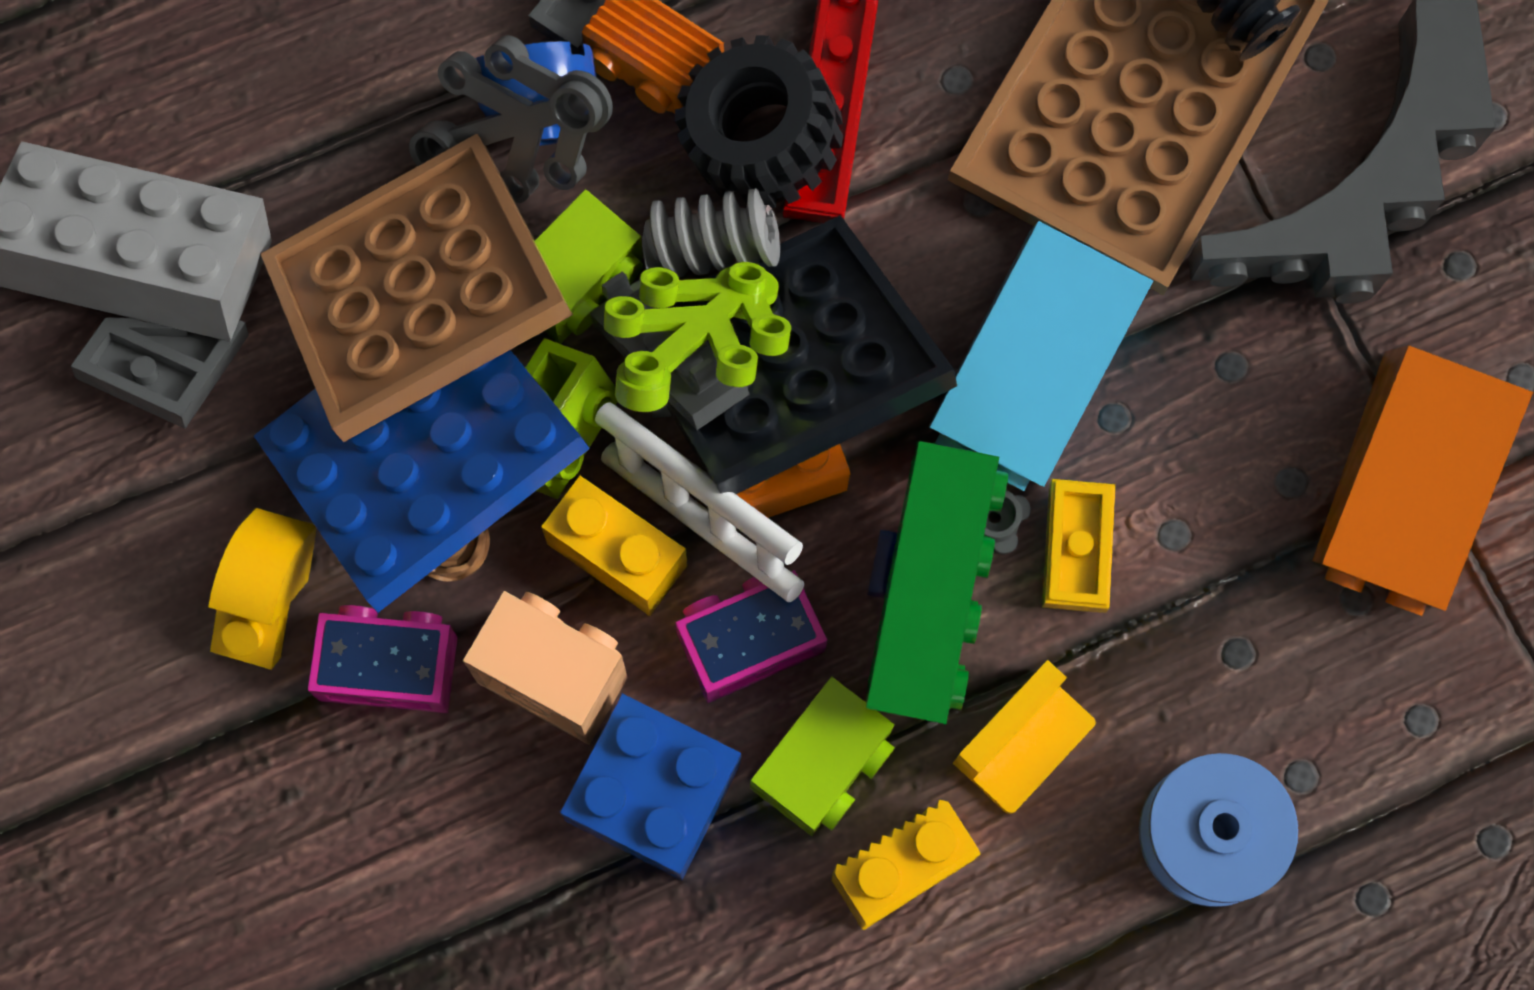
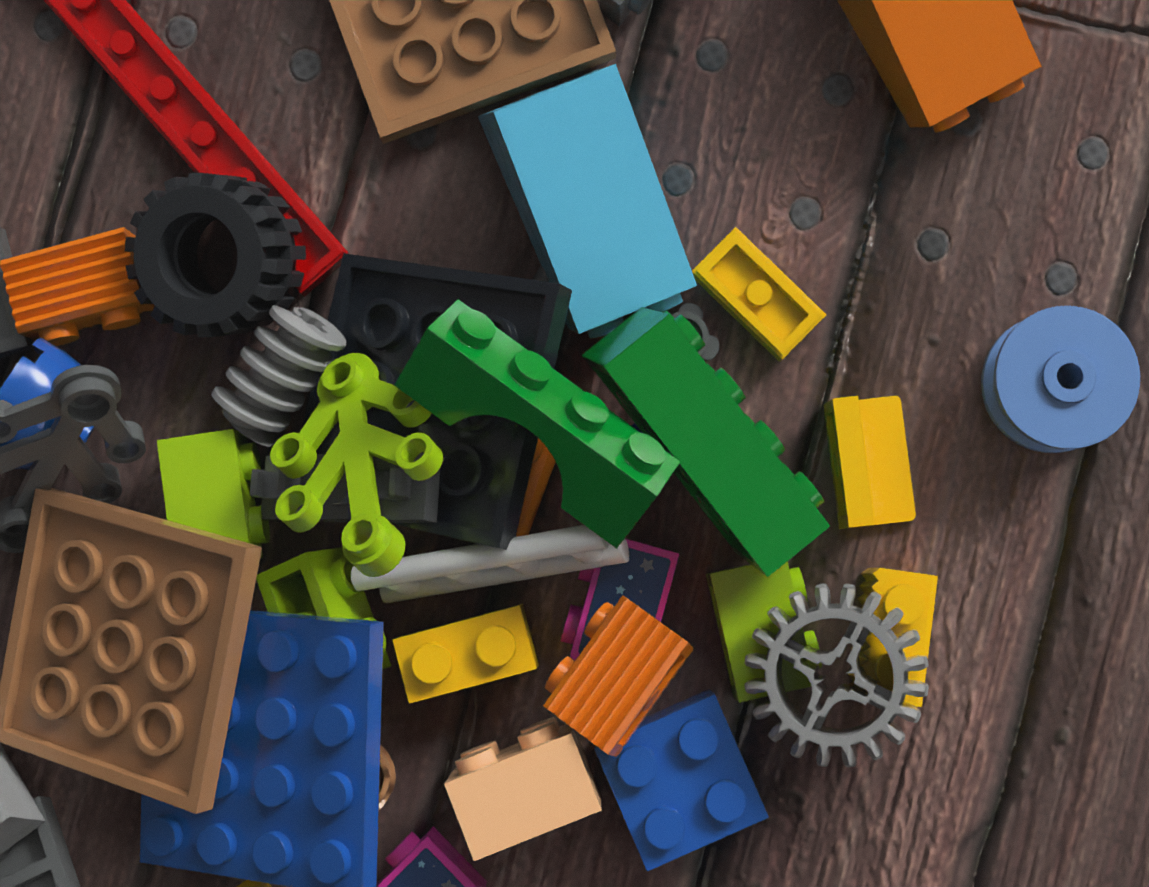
camera: 40 degrees left, 10 degrees up
(694, 659) = (616, 674): none -> orange brick
(846, 507) = (604, 463): none -> green arch
(860, 818) = (810, 725): none -> light grey gear

